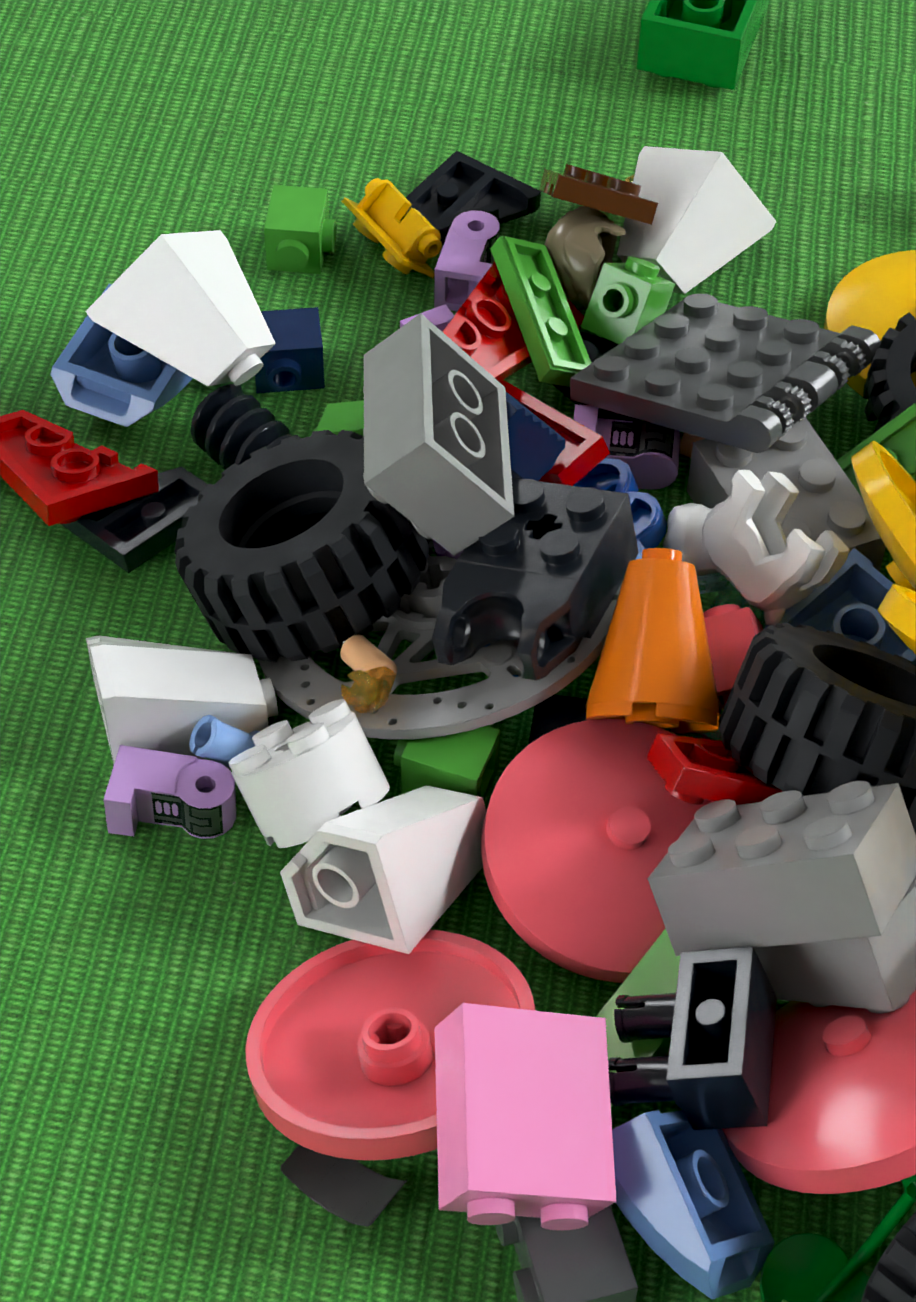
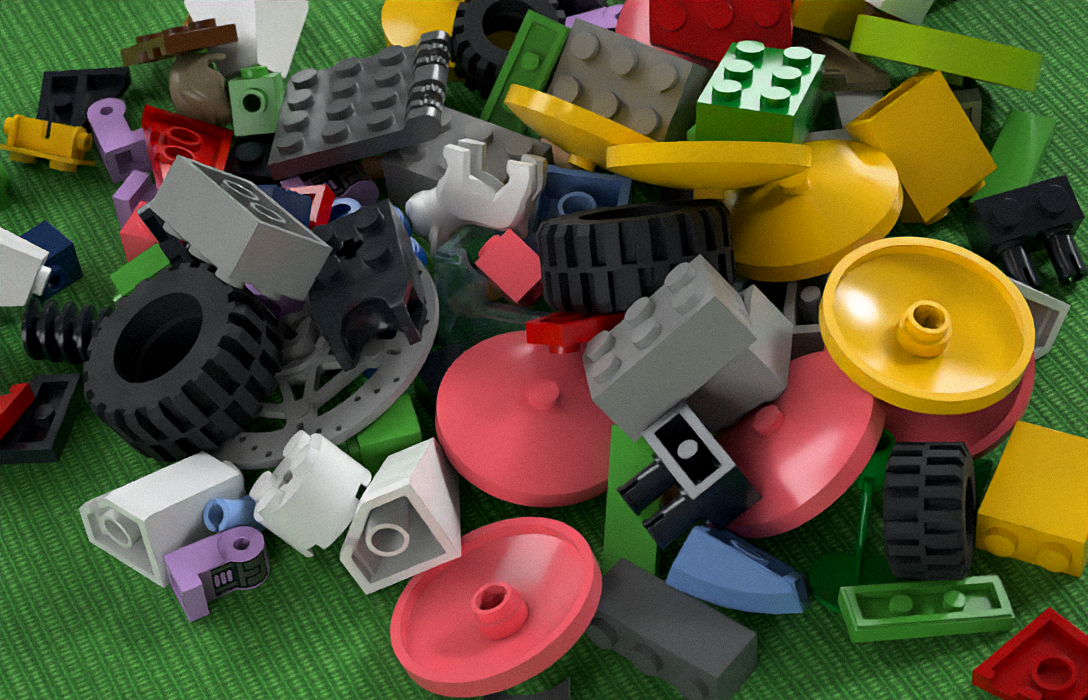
camera: 30 degrees left, 5 degrees down
(372, 673) = (301, 406): arm -> none
(523, 1116) = (623, 575): bright pink brick -> none
(541, 309) = (207, 136): bright green tile -> none
(657, 650) = (478, 282): orange cone -> none

